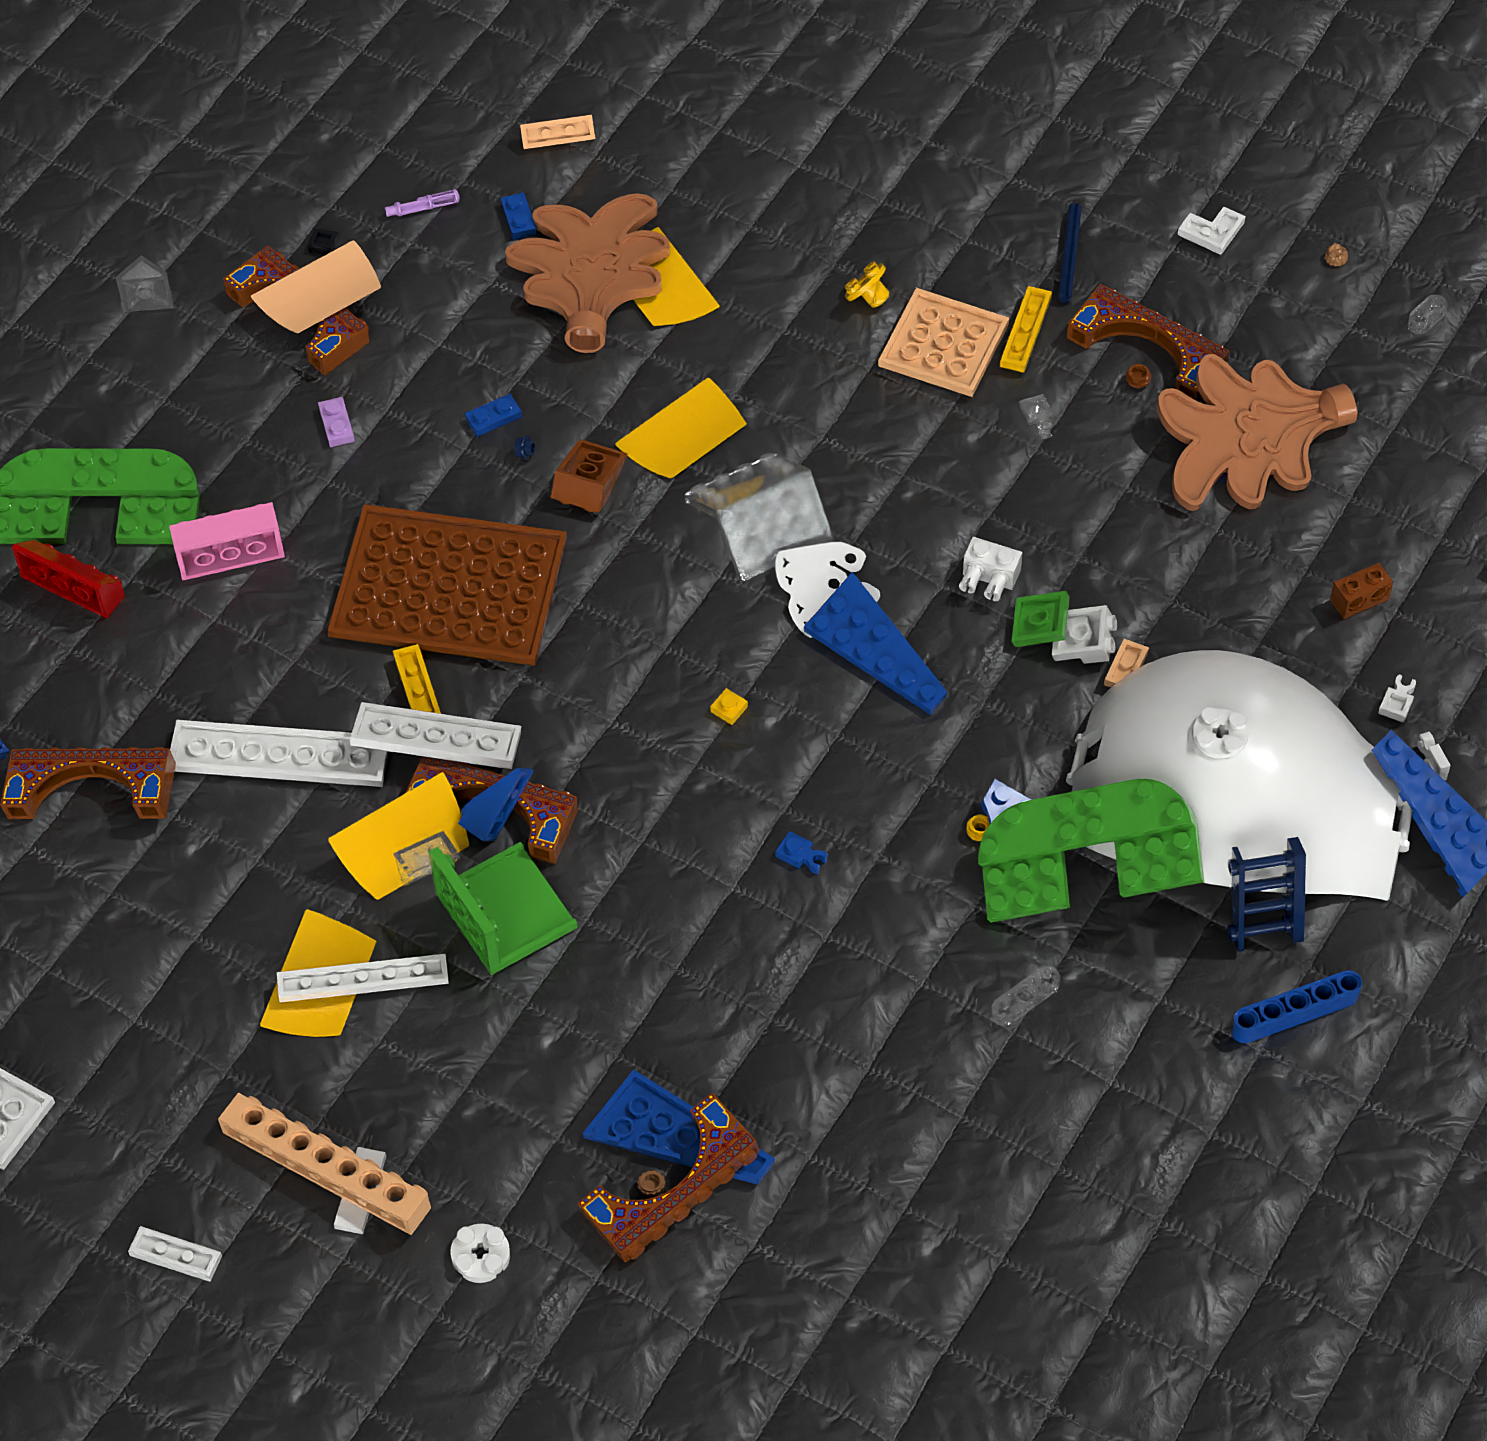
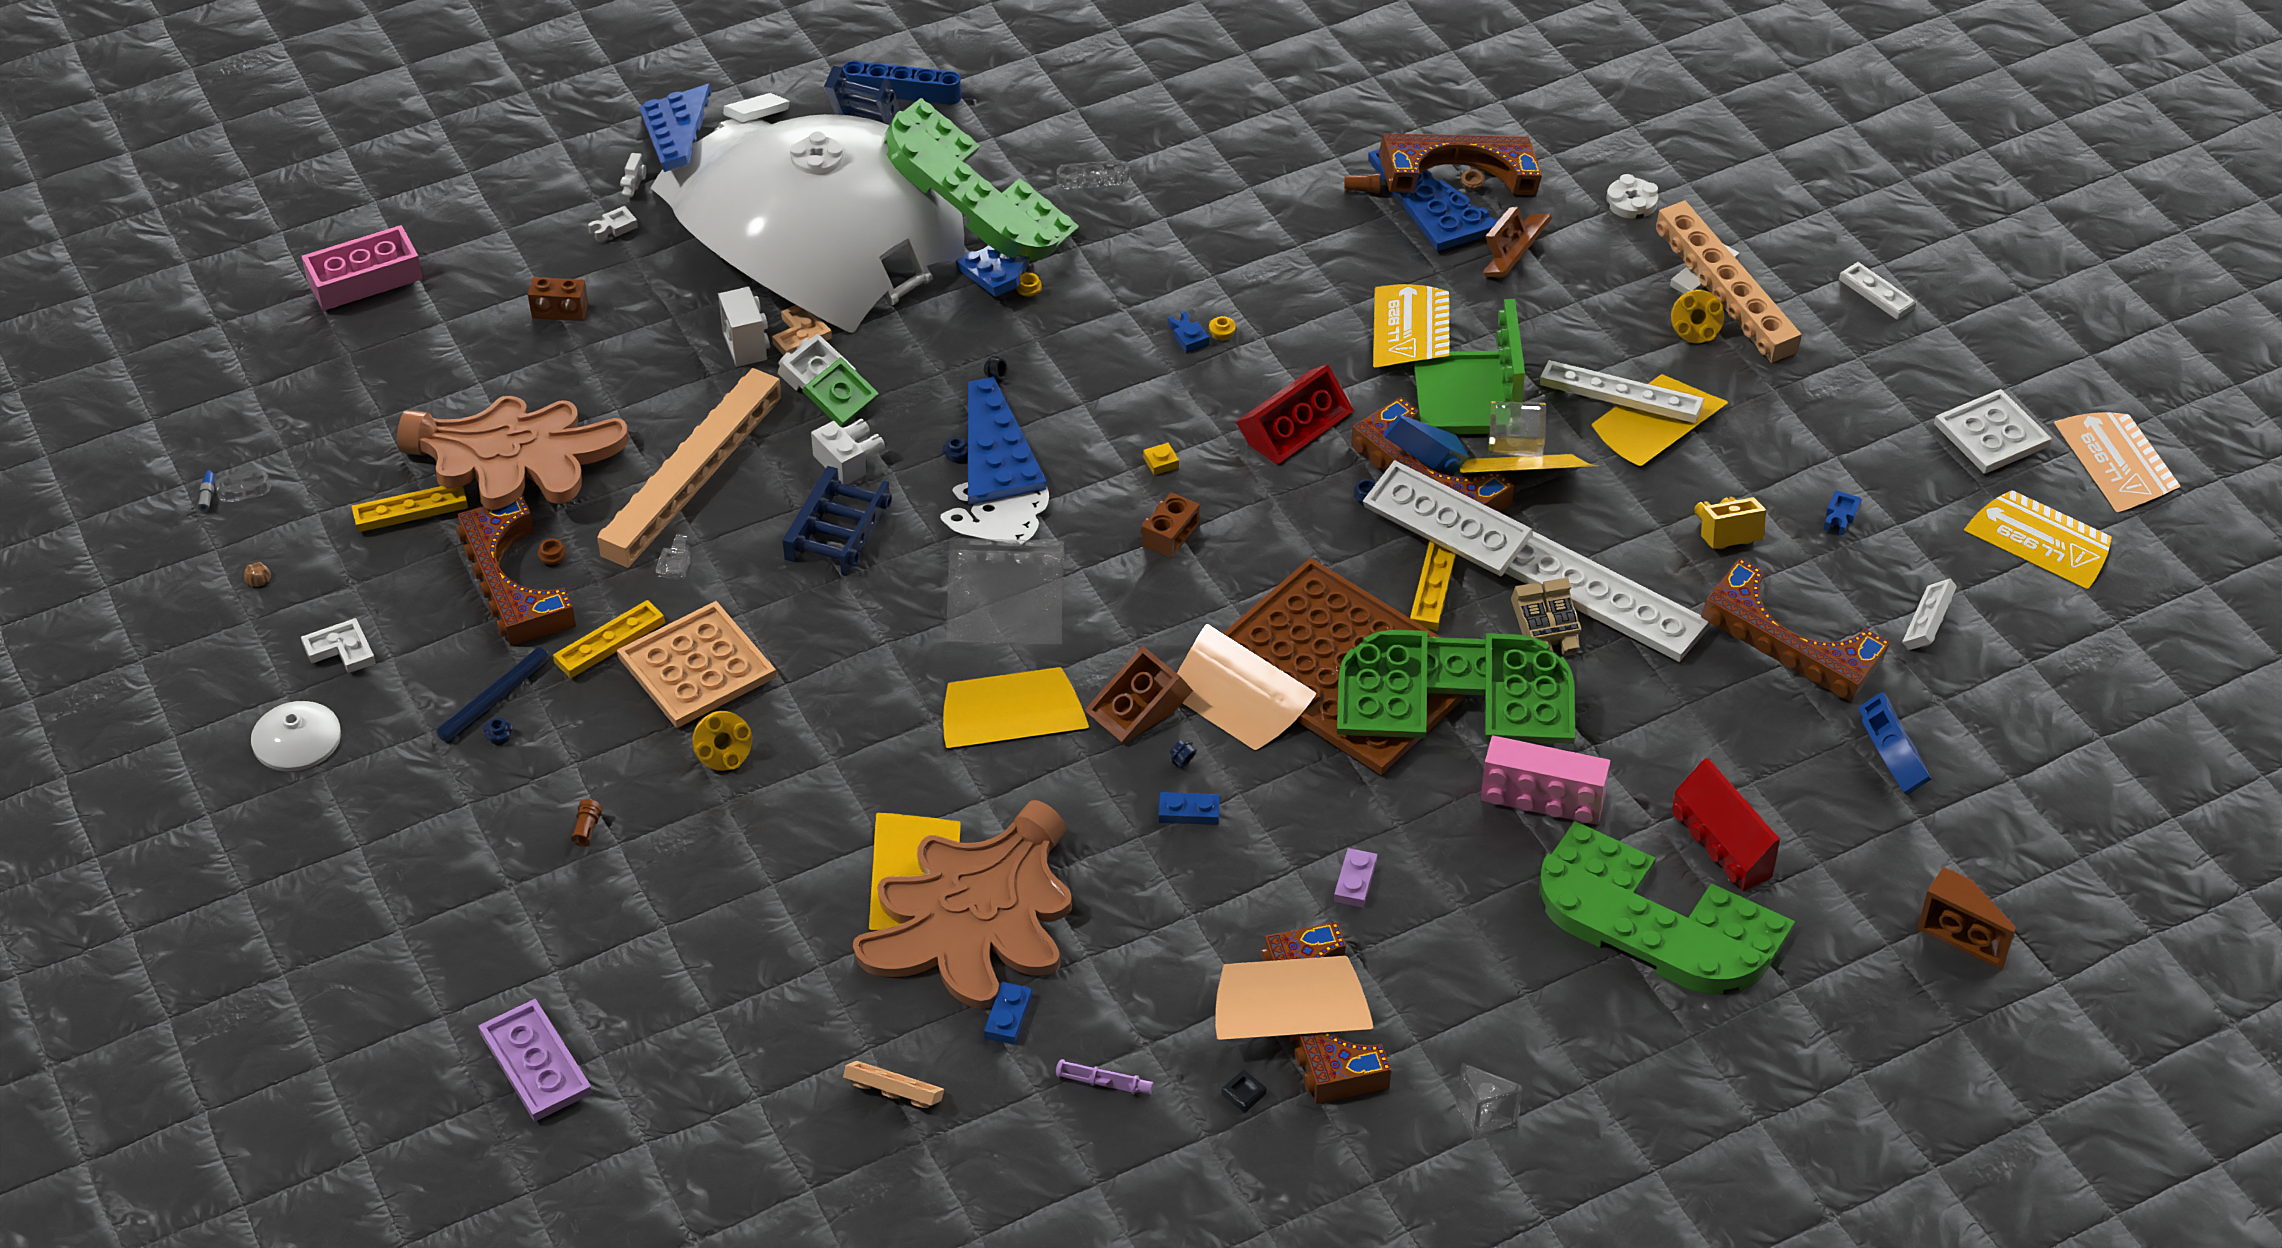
camera: 150 degrees left, 10 degrees down
(102, 947) = (1842, 510): none -> blue plate
(189, 868) = (1731, 522): none -> yellow brick
(285, 608) = (1391, 672): none -> bright green plate
(303, 693) = (1548, 613): none -> tan hips
(337, 1106) = (1697, 316): none -> yellow plate
(517, 516) = (1241, 689): none -> light nougat sticker
(531, 751) = (1362, 489): none -> dark blue plate
(563, 1116) = (1511, 239): none -> dark orange bracket
(602, 961) = (1410, 324): none -> yellow sticker
(642, 800) = (1295, 415): none -> red slope
(672, 636) = (1170, 524): none -> dark orange brick
(760, 1119) = (1367, 183): none -> dark orange pin
(772, 878) = (1222, 328): none -> yellow plate
(802, 41) = (535, 1060): none -> lavender plate
(907, 631) = (956, 449): none -> dark blue plate
(916, 200) = (587, 817): none -> dark orange pin
(935, 719) = (996, 368): none -> black plate
(961, 492) = (820, 504): none -> dark blue fence
(1039, 229) = (498, 731): none -> dark blue plate
(1101, 497) = (689, 468): none -> light nougat brick
(1173, 627) = (744, 326): none -> white brick
(1177, 163) = (295, 736): none -> white dish
(1290, 345) = (408, 507): none -> yellow plate
(1396, 888) = (756, 107): none -> white tile
(1450, 297) = (206, 491): none -> light grey piece

